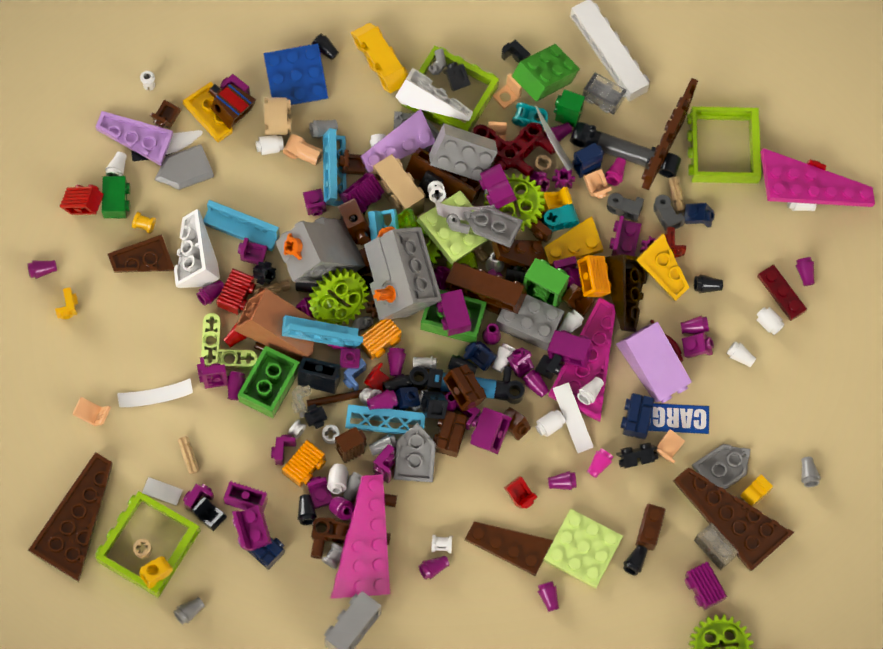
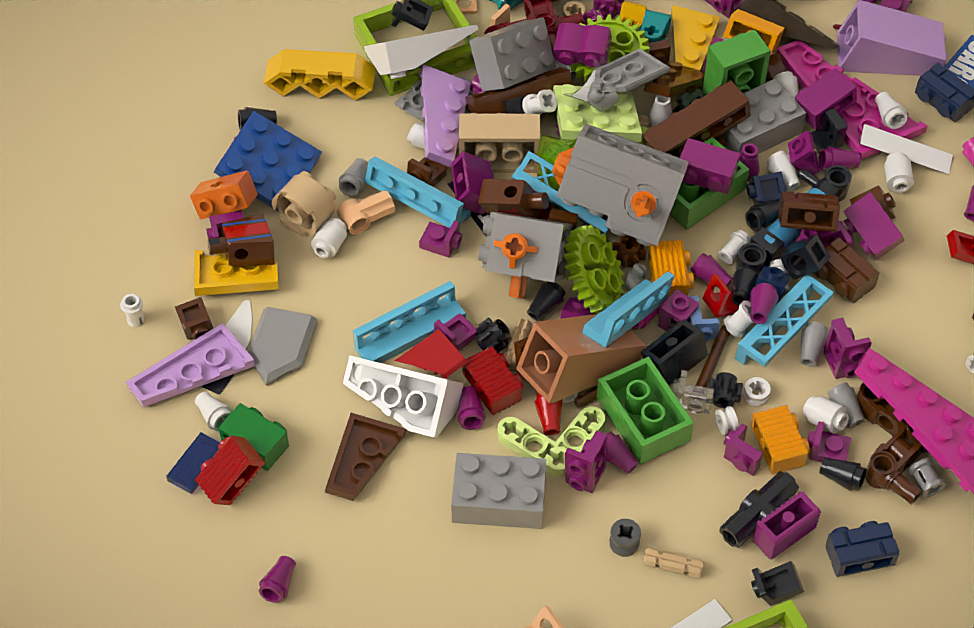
camera: 50 degrees left, 15 degrees down
(70, 309) = (356, 572): yellow bracket -> none
(81, 178) = (189, 465): none -> clear blue tile
(143, 222) = (316, 425): yellow bush -> none
(154, 396) = (562, 548): white sticker -> none
(167, 340) = (498, 490): none -> light grey brick
(187, 424) = (625, 545): none -> dark grey wheel
(193, 497) = (738, 585): magenta bracket -> none
(221, 252) = (435, 354): none -> red slope
(251, 478) = (758, 505): none -> black piece
(251, 528) = (842, 533): magenta bracket -> none
(252, 70) = (224, 194): none -> orange brick
(341, 507) = (870, 429): magenta brick -> none
(350, 444) = (794, 370): reddish brown brick -> none
(415, 456) = (857, 310): light grey tile -> none
(440, 63) = (380, 21): light grey arm -> none

